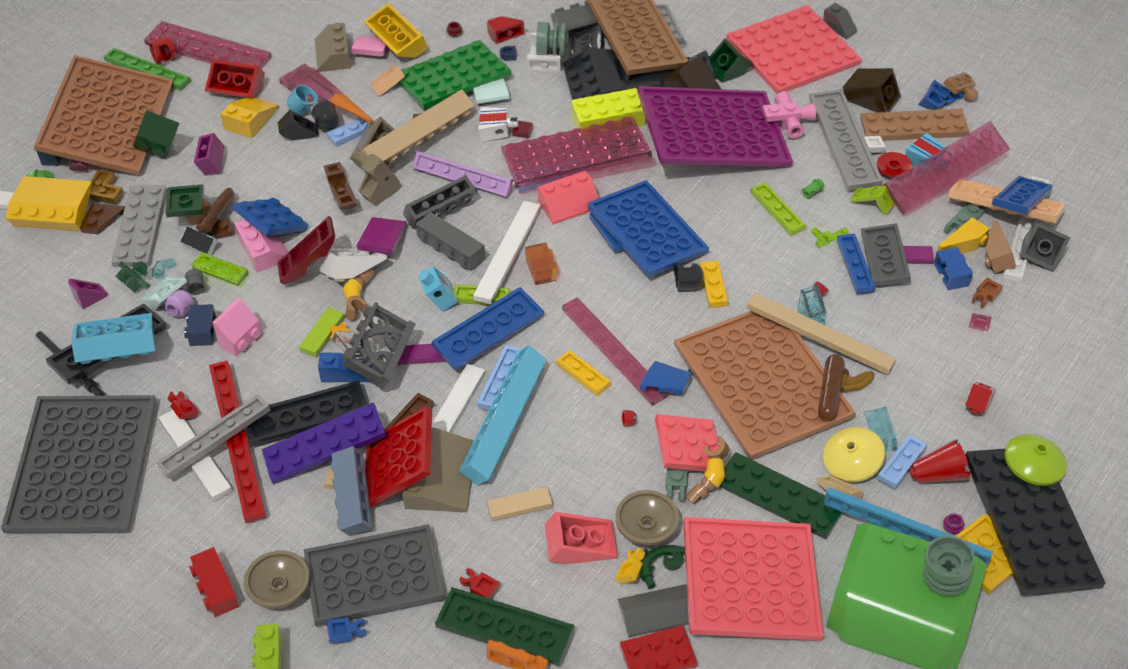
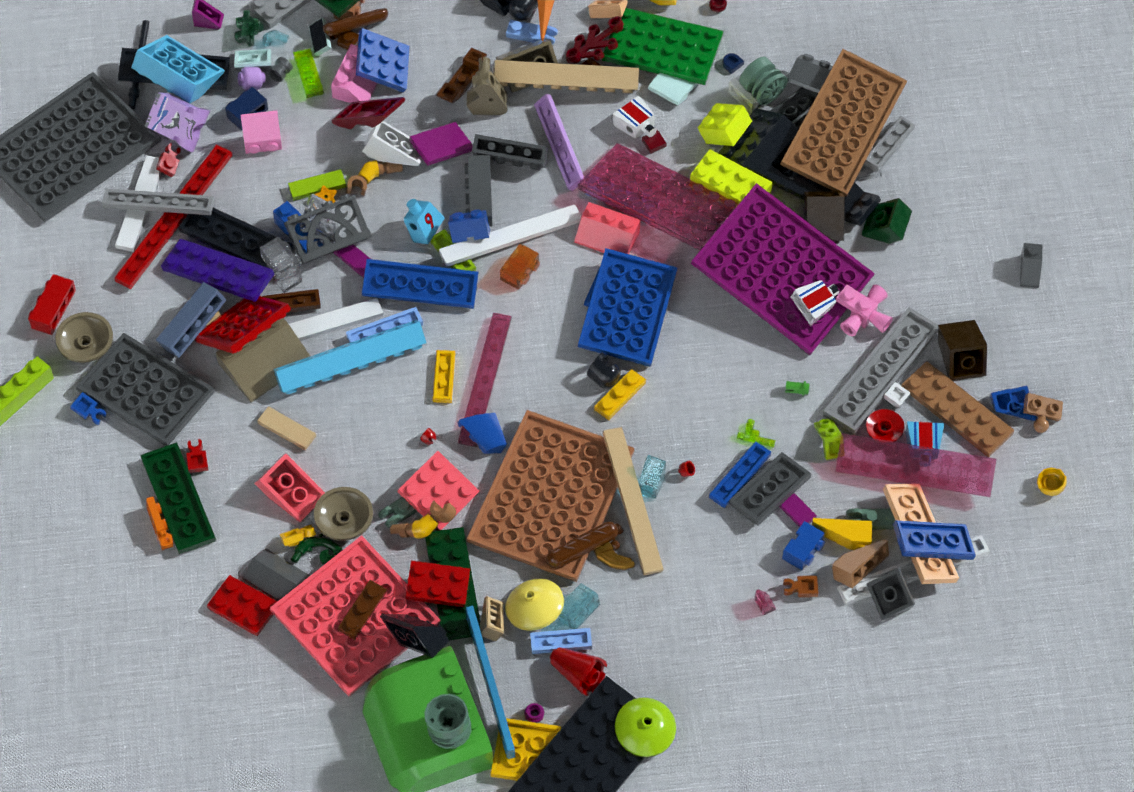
camera: 45 degrees right, 10 degrees up
(159, 369) = (177, 120): none -> lavender piece
(370, 389) = (283, 262): none -> clear brick
(404, 116) = (577, 53): none -> dark red plant
(476, 262) = (469, 225): none -> blue brick
(504, 28) = (753, 37): red slope -> none
(559, 81) = (724, 124): none -> neon yellow brick
(755, 566) = (362, 609): none -> reddish brown plate
(761, 127) = (815, 300): none -> torso
(778, 209) = (749, 380): lime tile -> none
(778, 500) = (437, 584): none -> red plate
(794, 49) = (960, 256): coral plate -> none
(826, 539) = (416, 633): none -> black slope
(979, 397) = (679, 651): red slope -> none
(1024, 115) = (1051, 481): none -> yellow hair

